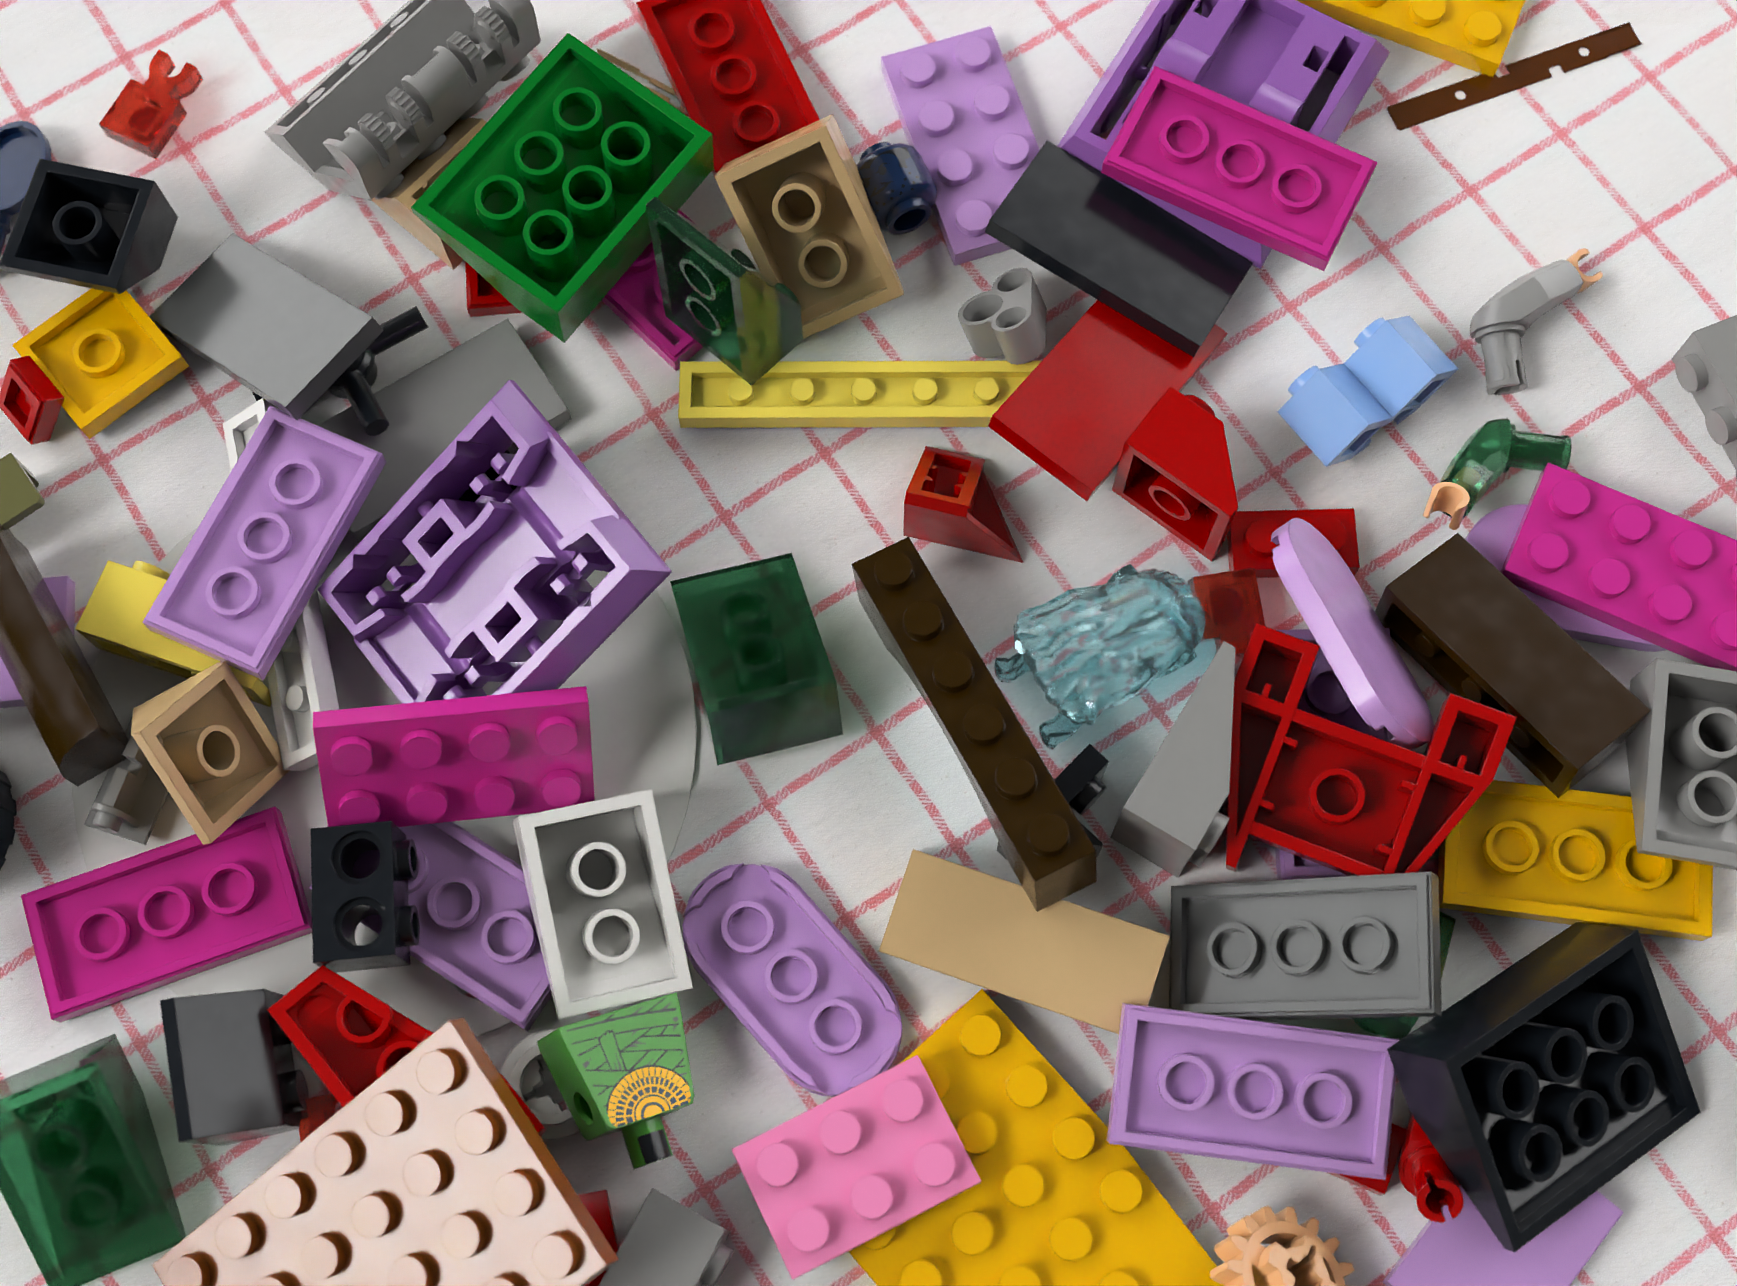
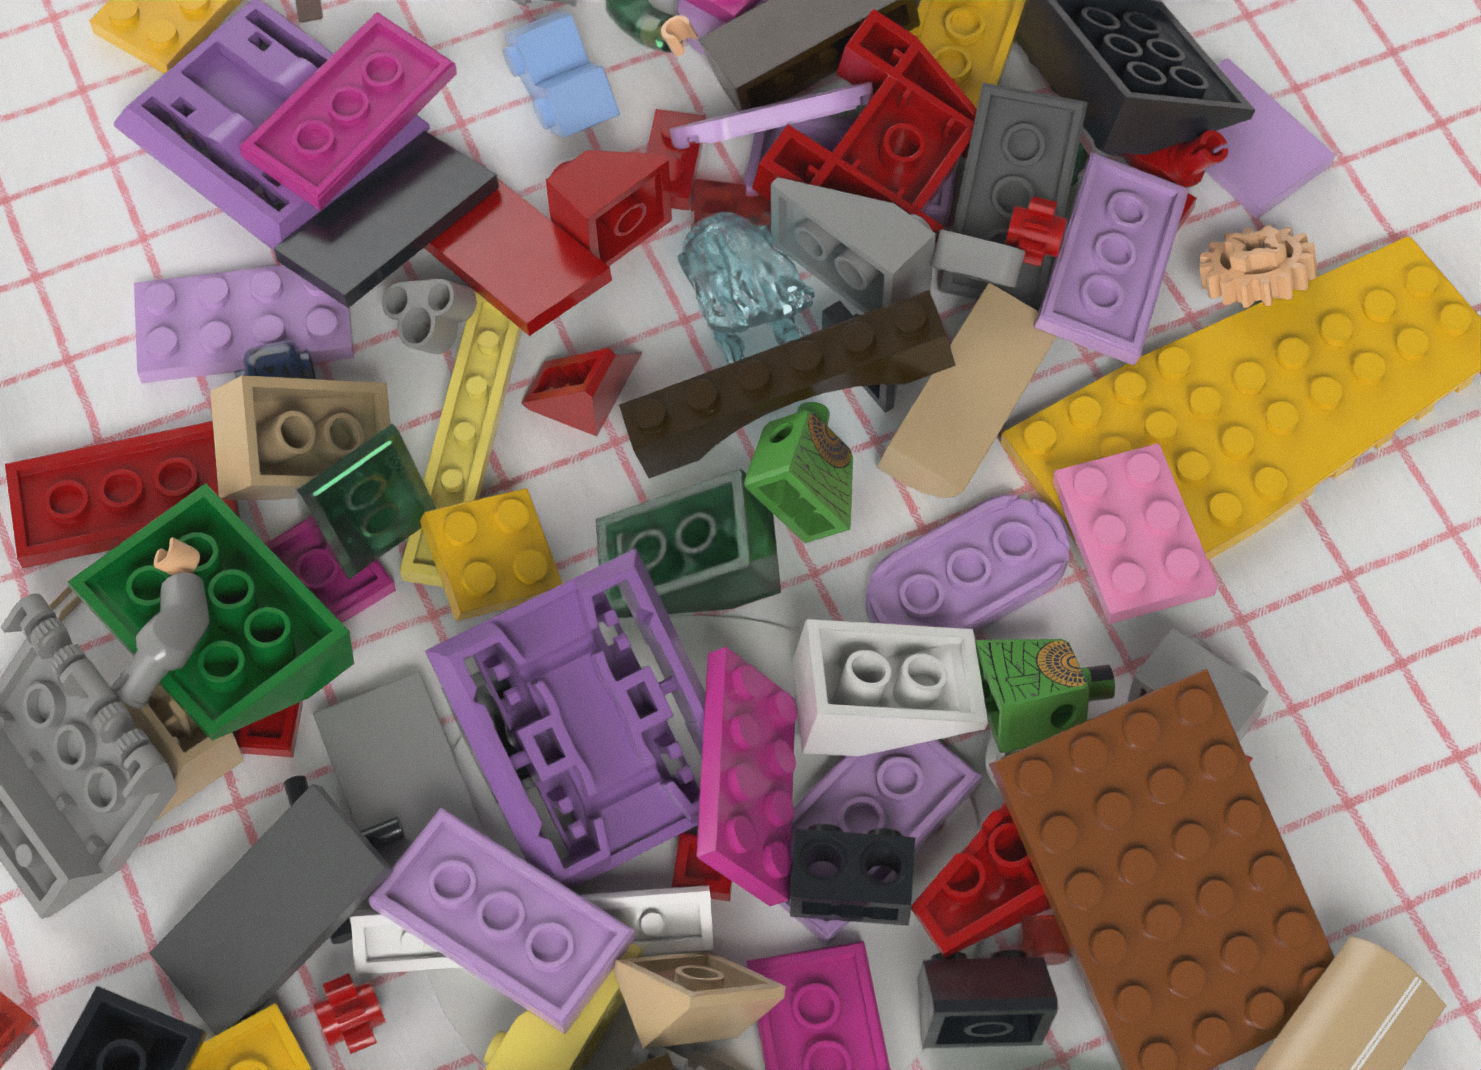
camera: 80 degrees left, 10 degrees down
(176, 426) = (349, 1013): none -> red gear
(504, 138) = (172, 633): none -> light grey arm
(713, 448) = (490, 553): none -> yellow plate
(868, 759) = (804, 473): none -> bright green torso
(1191, 915) = (977, 258): none -> light grey piece
(1241, 980) = (1036, 230): none -> red gear

